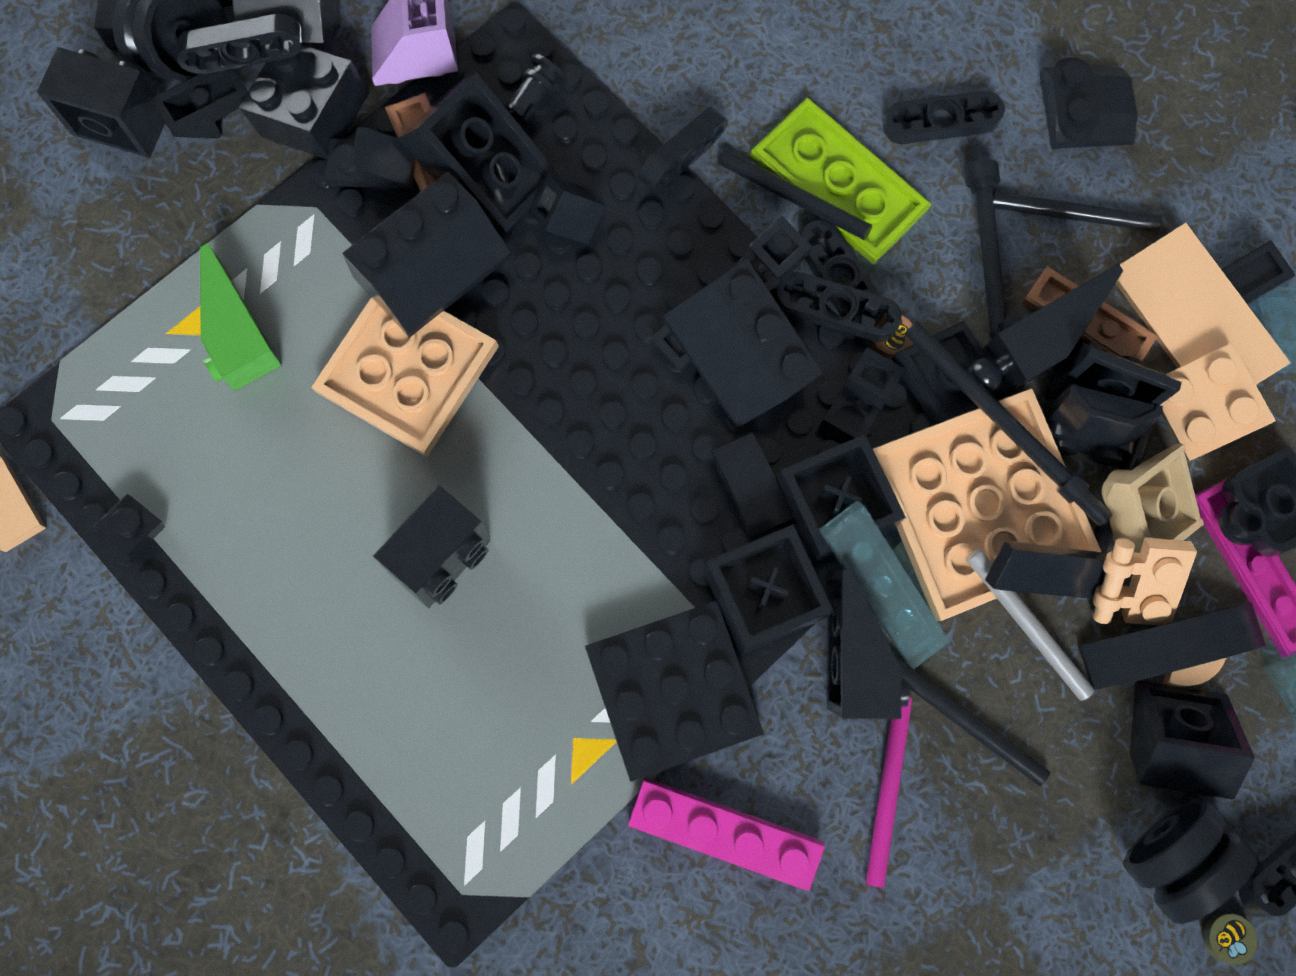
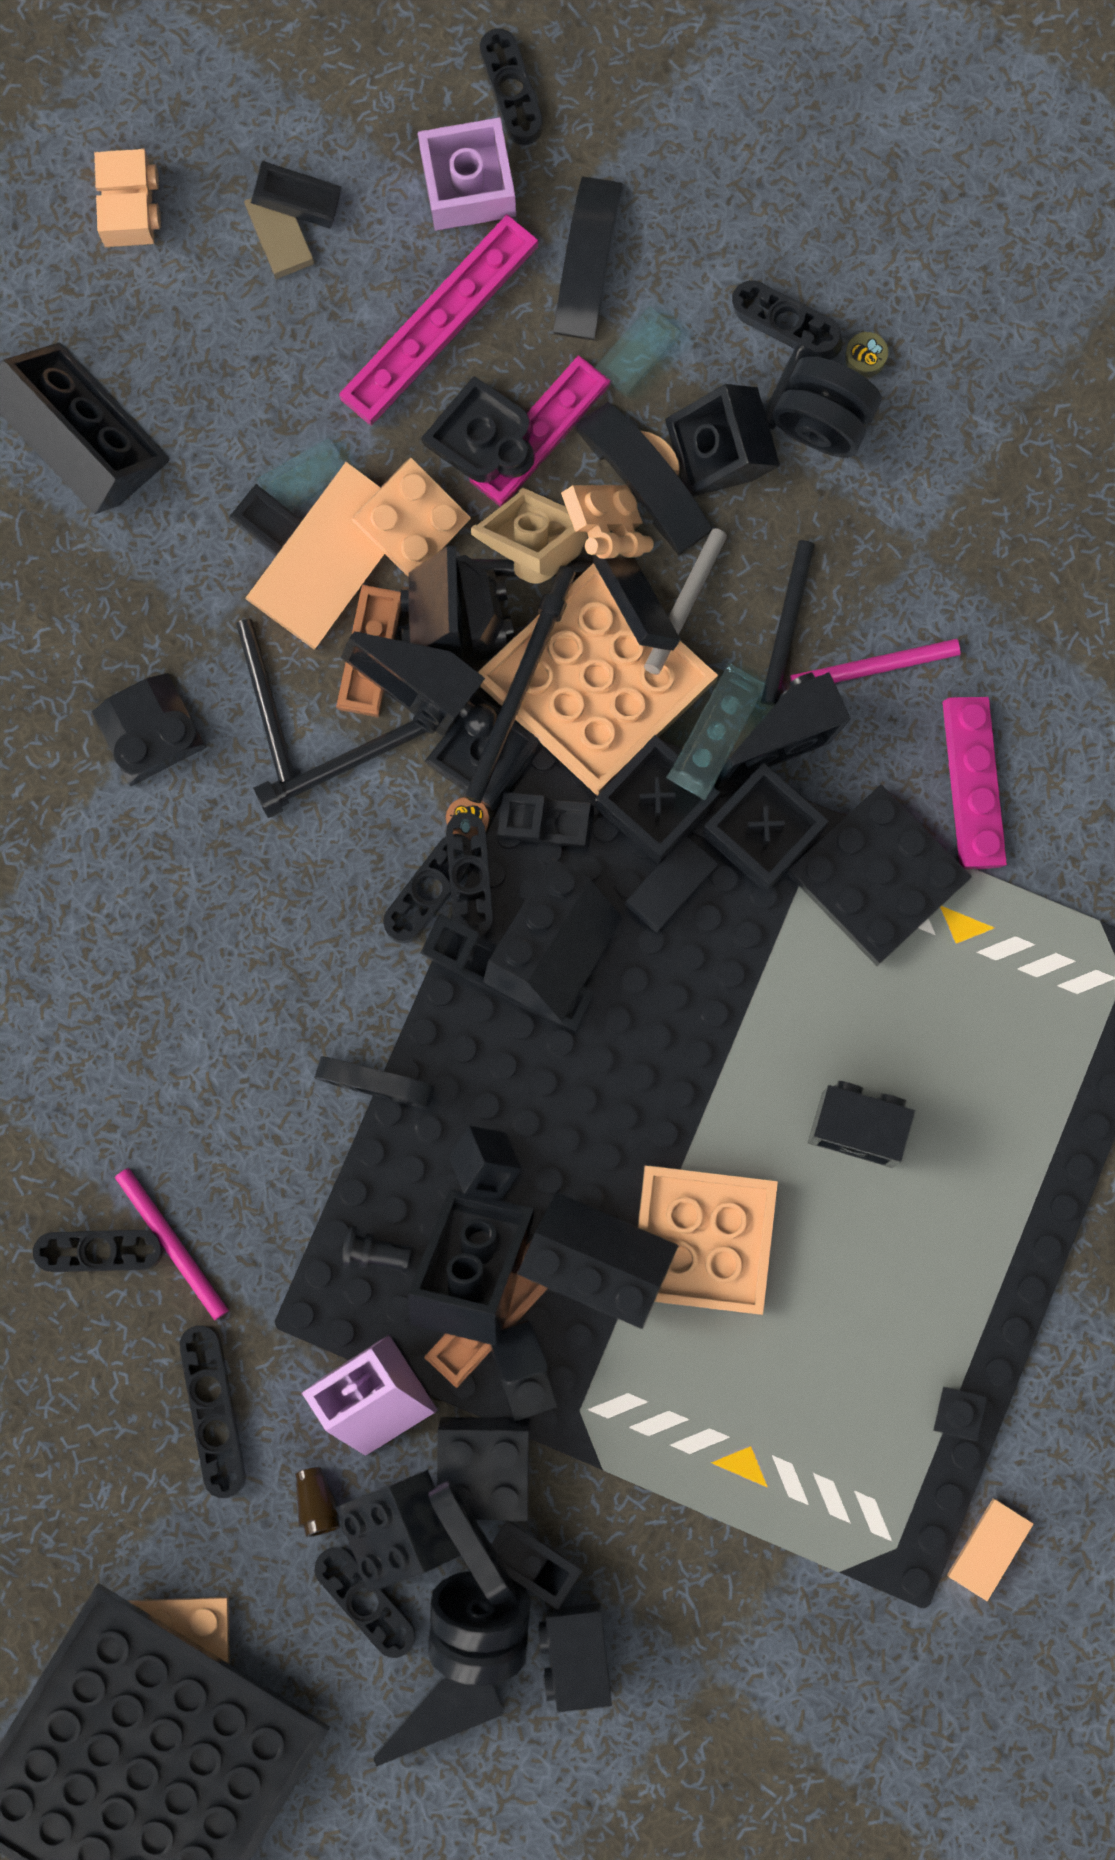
camera: 105 degrees left, 5 degrees up
(228, 329) = (744, 1415): bright green slope -> none
(795, 194) = (368, 964): black bar -> none
(835, 166) = (329, 929): lime tile -> none
(956, 105) = (195, 838): black beam -> none

